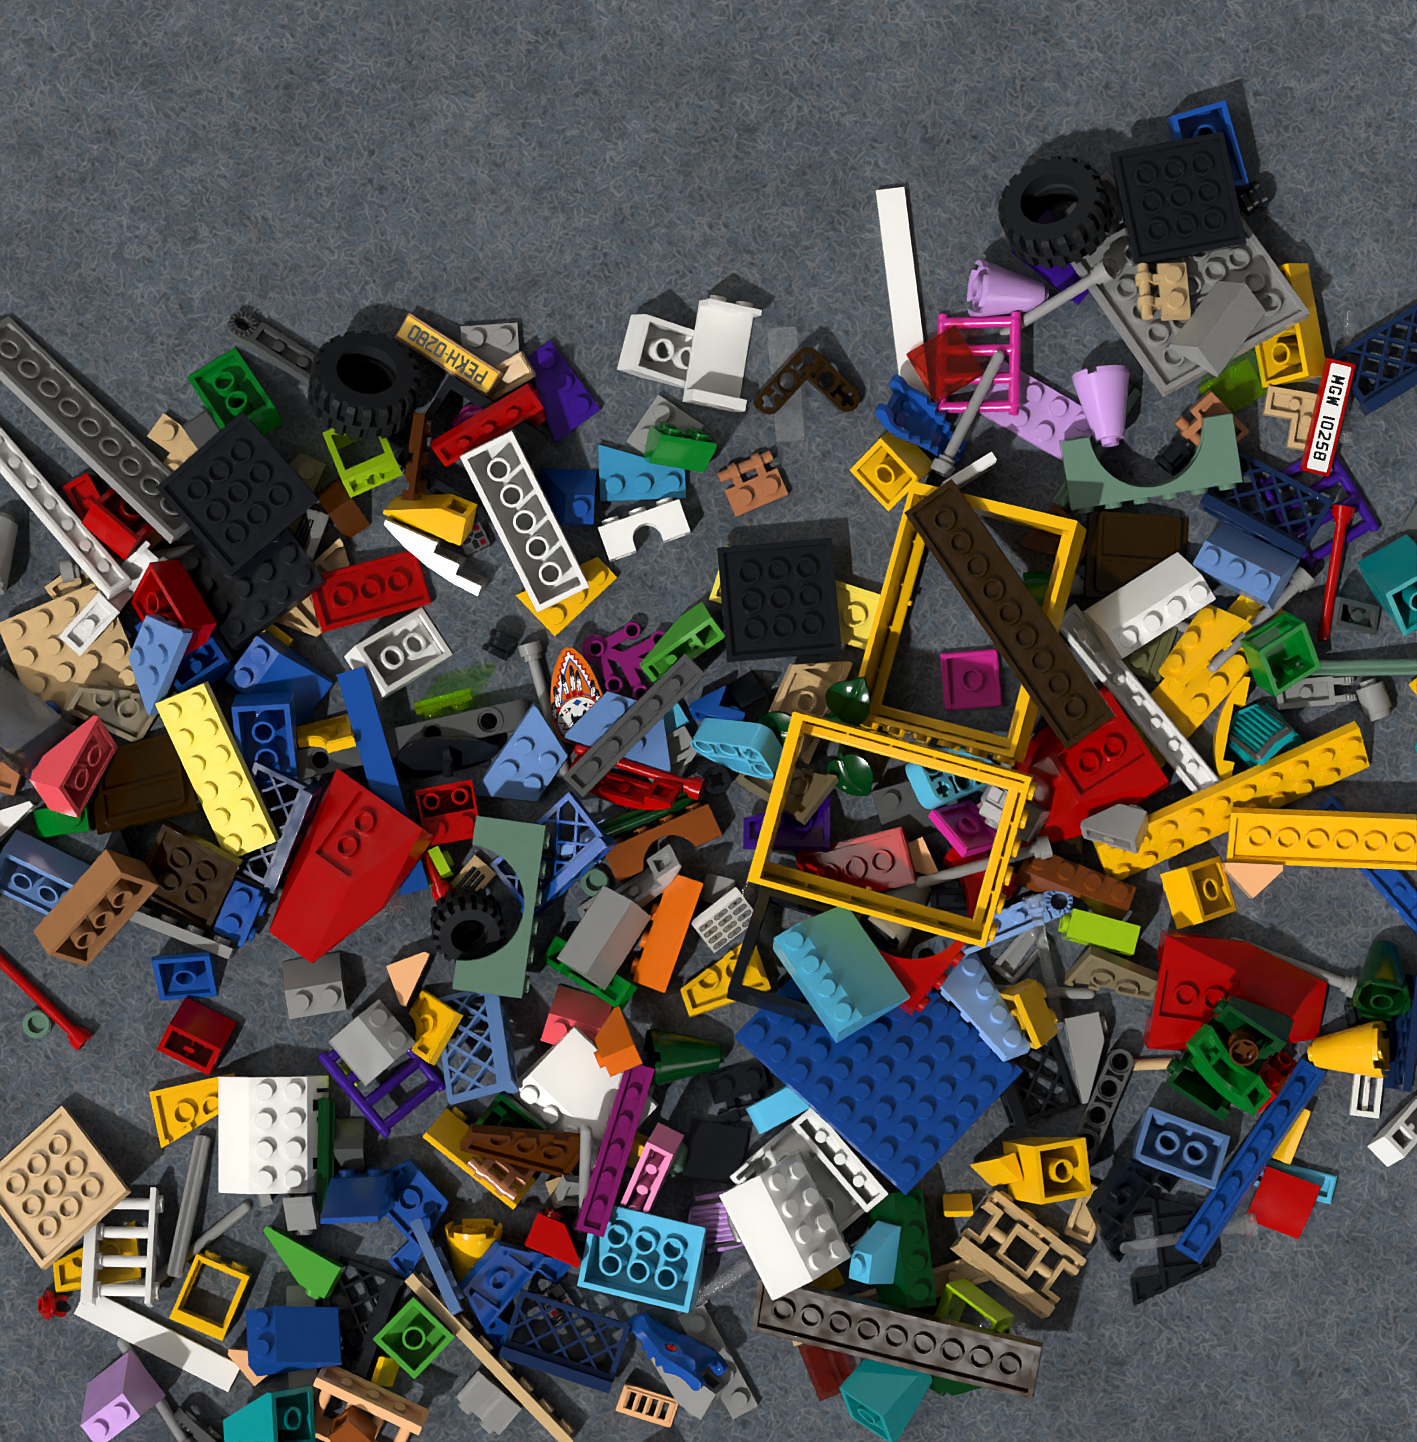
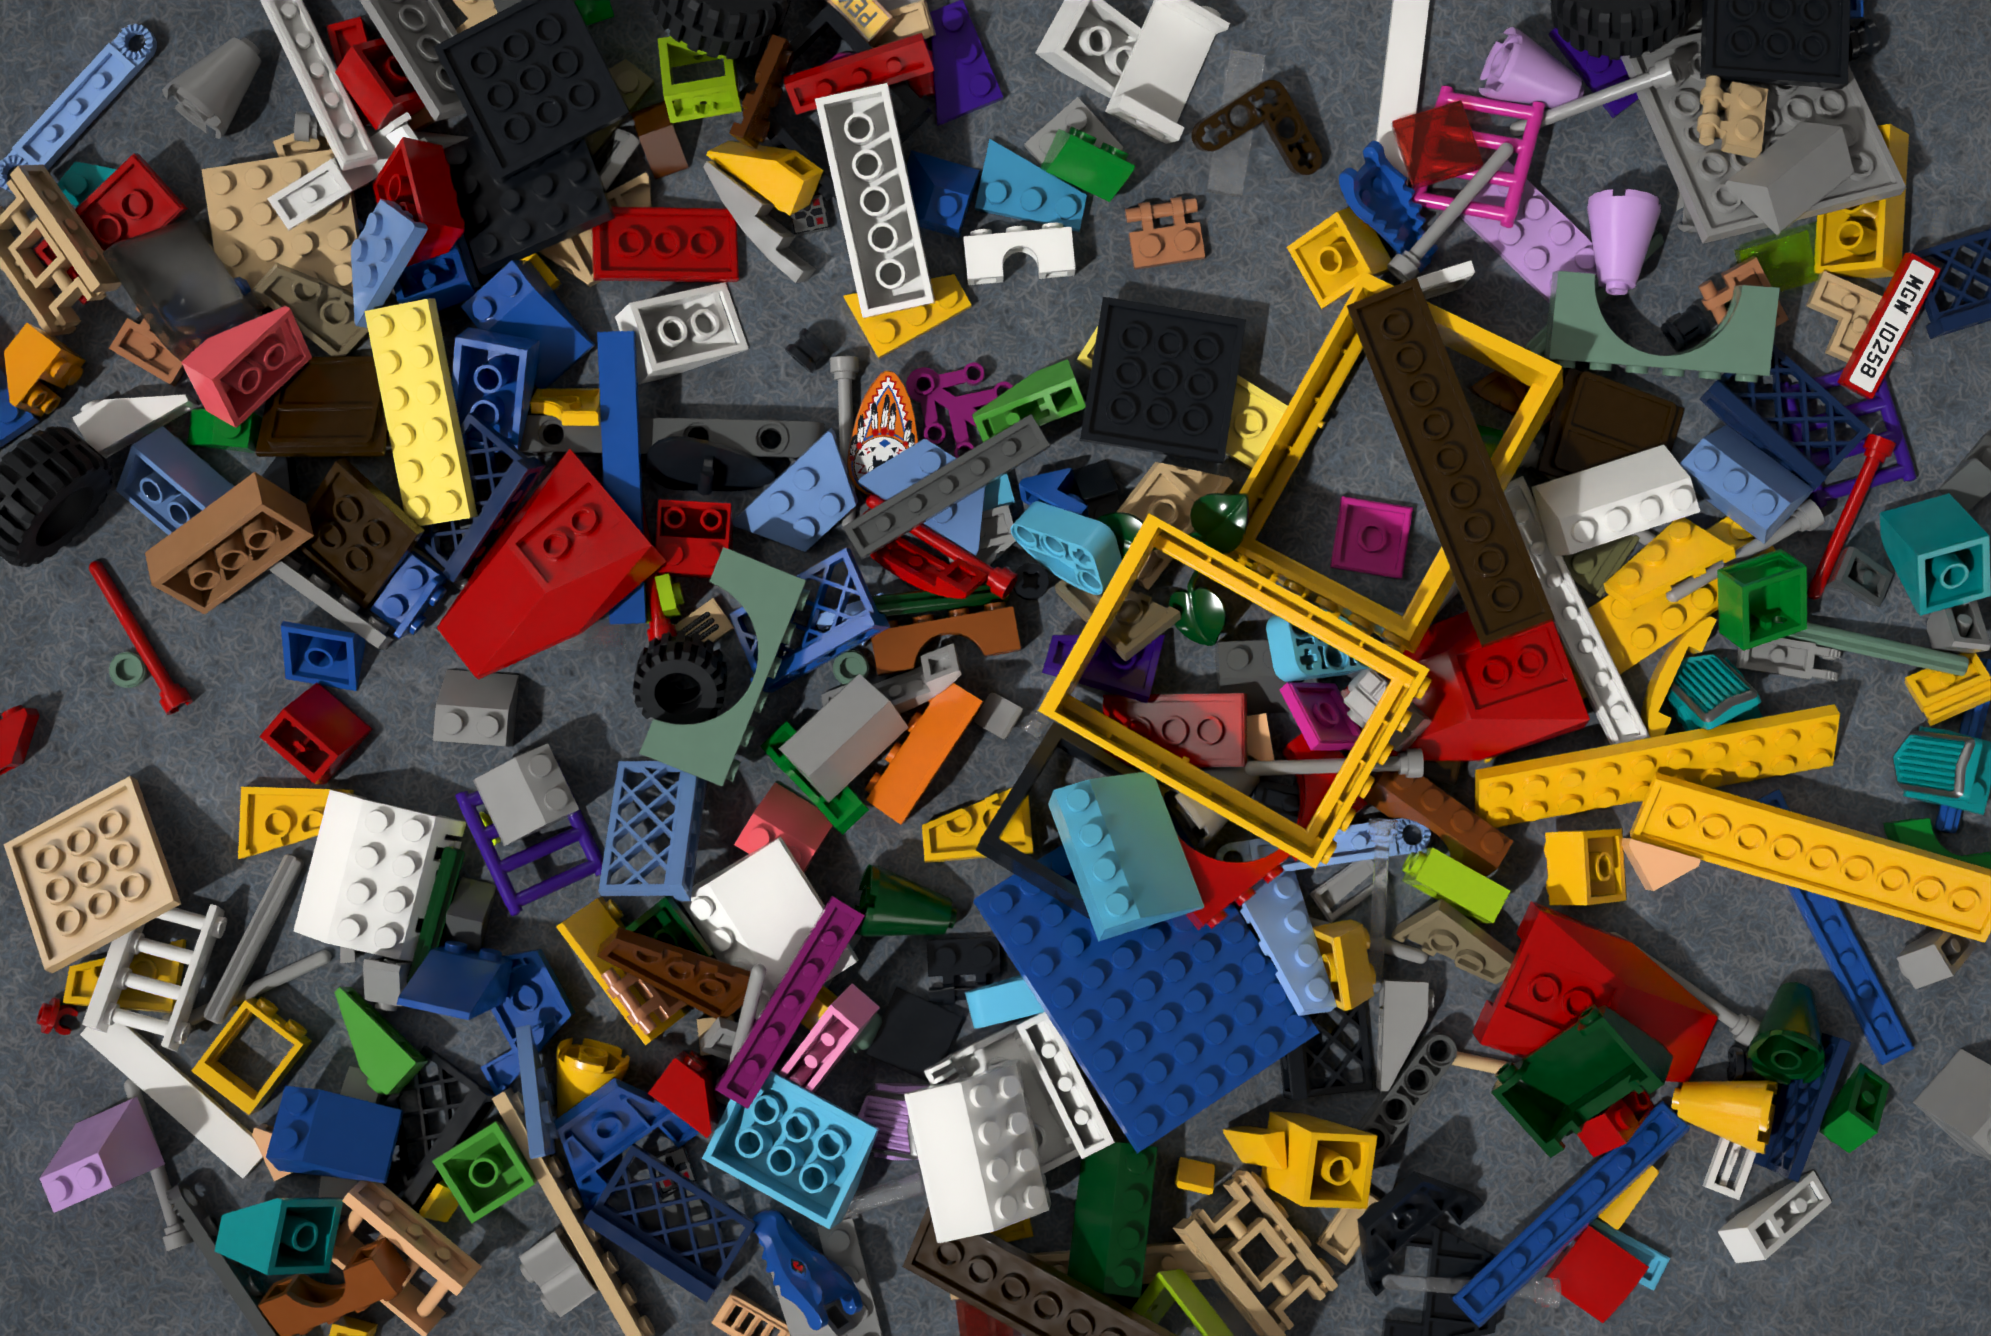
camera: 10 degrees right, 0 degrees up
(406, 975) = (591, 724): light nougat slope -> none
(432, 707) = (708, 403): clear neon green plate -> none
(434, 1025) = (609, 793): yellow tile -> none
(616, 1045) = (824, 874): orange slope -> none
(723, 920) = (996, 753): tile -> none
(876, 1255) = (1080, 1214): medium azure slope -> none
(1117, 827) = (1511, 761): light grey slope -> none
(1180, 1147) = (1488, 1176): medium blue slope -> none
(1230, 1080) = (1570, 1100): green arch -> none
(1244, 1053) = (1601, 1082): reddish brown wheel -> none
(1374, 699) = (1859, 685): light grey brick -> none

